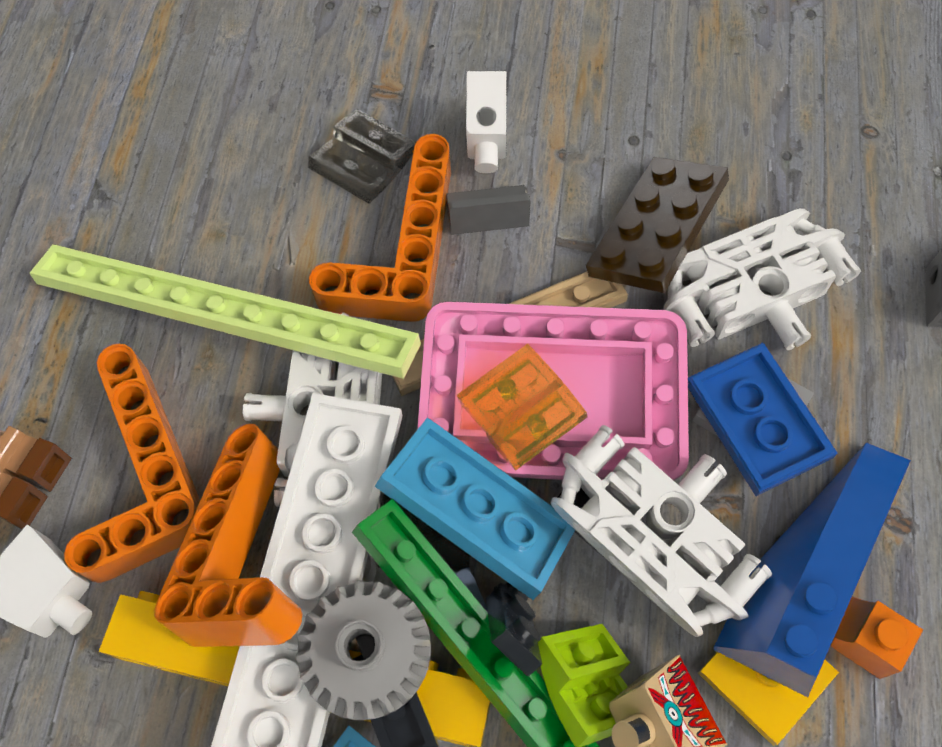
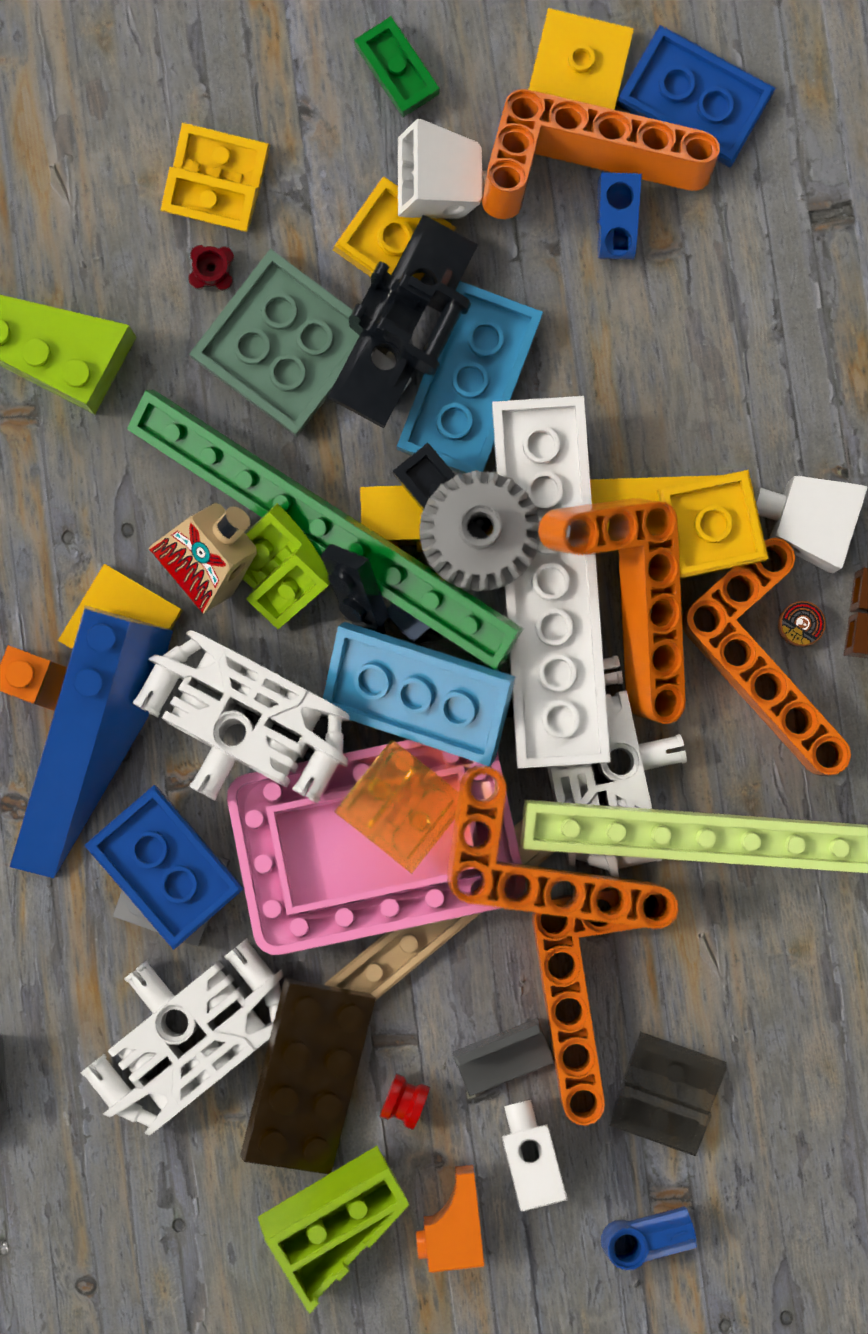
camera: 160 degrees right, 20 degrees up
(94, 493) = (801, 624): none -> tile
(119, 598) = (716, 523): none -> yellow plate
(331, 274) = (539, 879): none -> orange beam
(424, 61) = (654, 1237): none -> blue piece
(562, 99) = (454, 1234): none -> orange arch
(579, 190) = (404, 1101): none -> red wheel
(661, 118) = (332, 1222): none -> lime wedge

